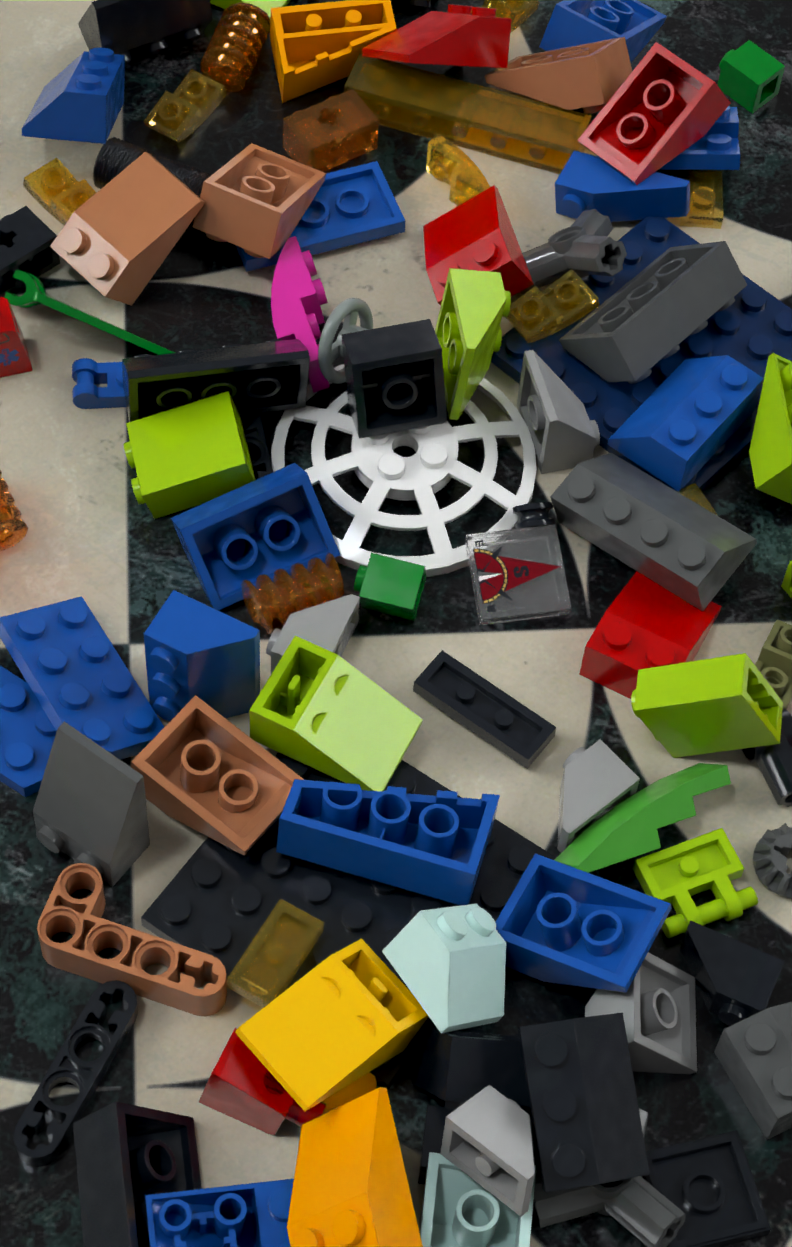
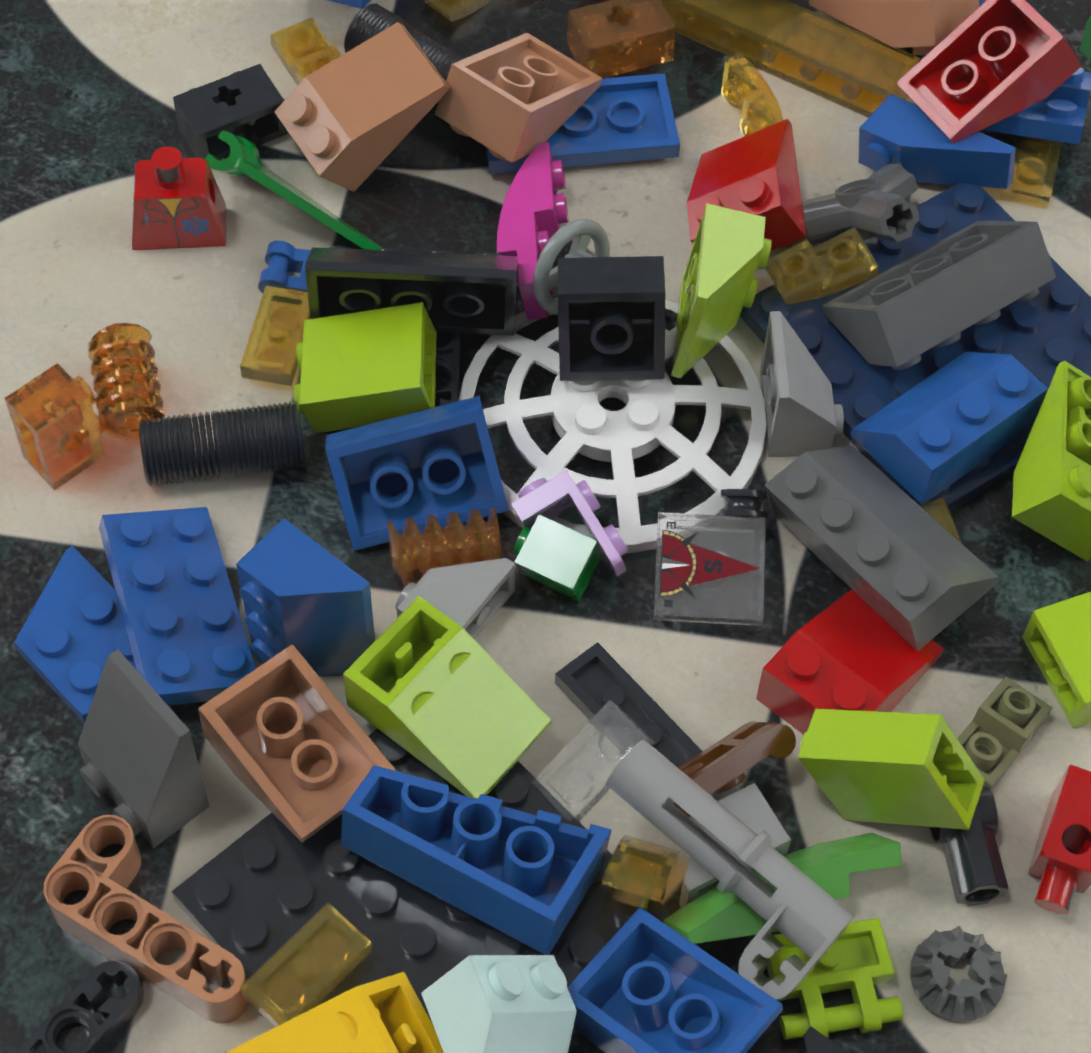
camera: 15 degrees right, 0 degrees up
(87, 541) = (243, 441): none -> black piece
(102, 440) = (274, 336): none -> clear yellow plate
(382, 534) = (558, 496): none -> lavender bracket
(464, 746) = (580, 771): none -> clear plate
(526, 826) = (640, 871): none -> clear yellow slope
(565, 735) = (725, 762): none -> reddish brown plate
(663, 830) = (795, 909): none -> light grey piece

